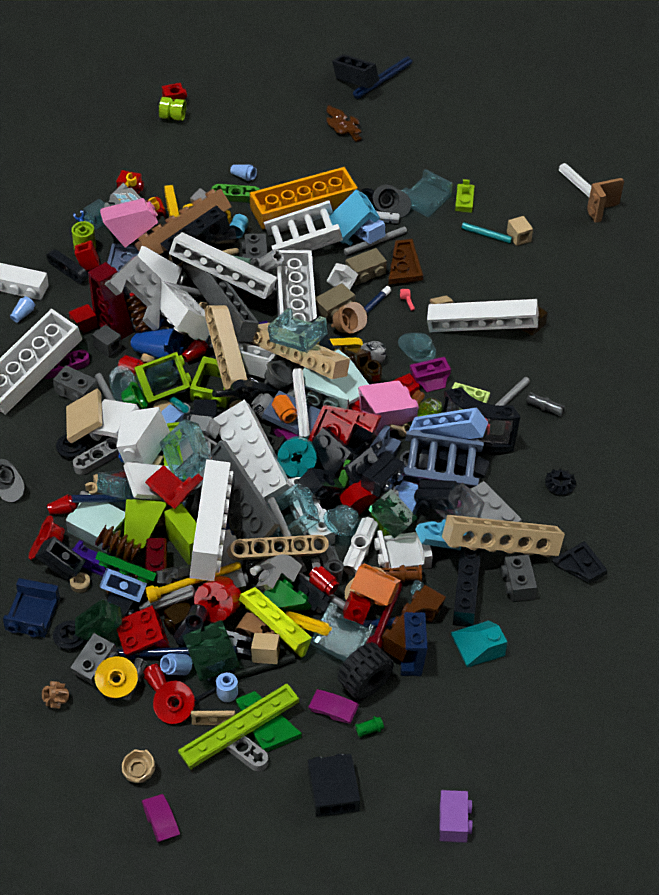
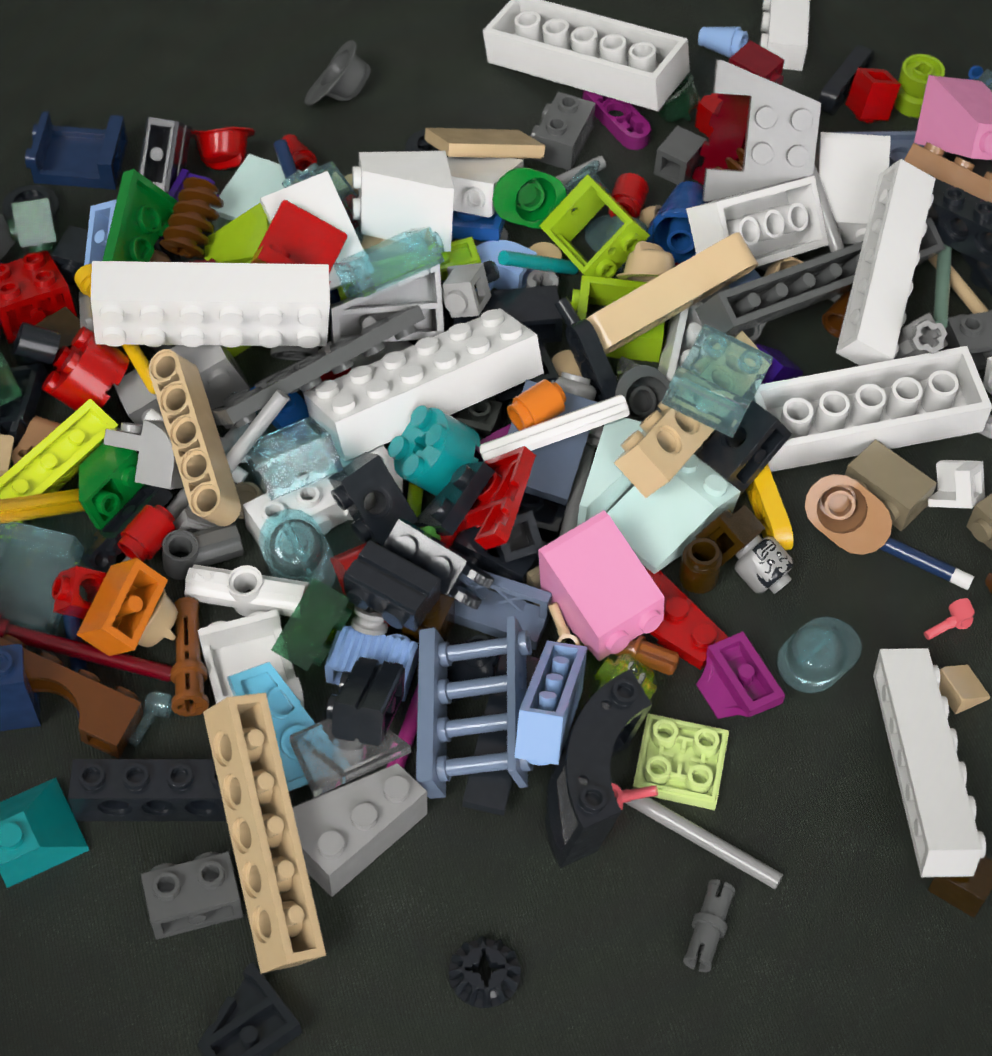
camera: 80 degrees right, 5 degrees up
(196, 358) = (646, 262): none -> tan piece

